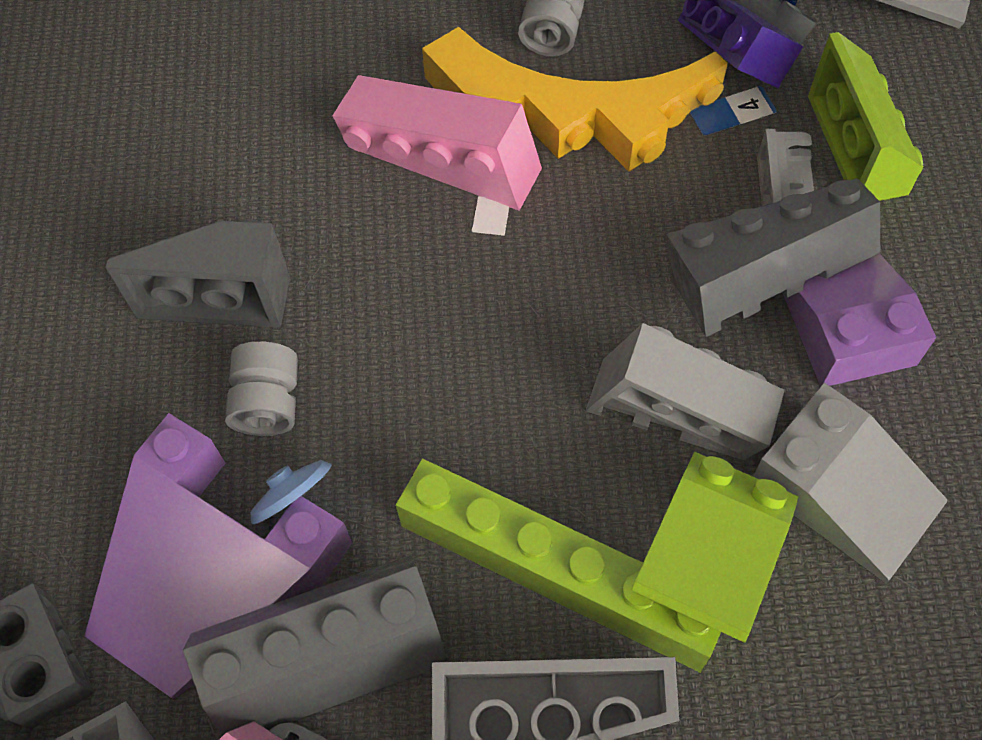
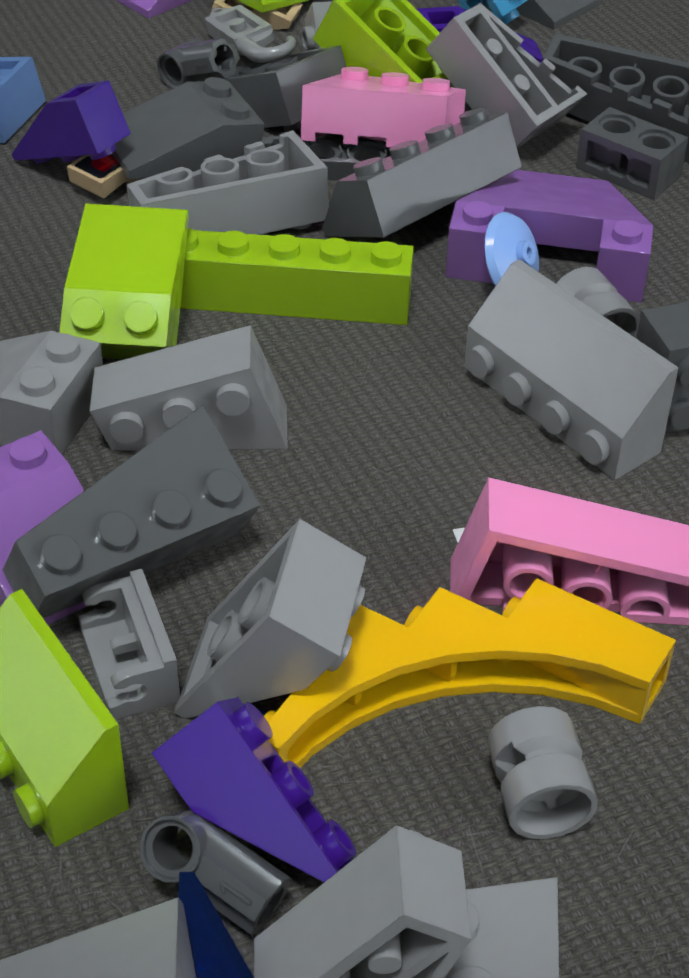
camera: 155 degrees right, 20 degrees down
(343, 312) = (572, 370): none -> light grey slope
(697, 114) = (278, 624): none -> light grey slope

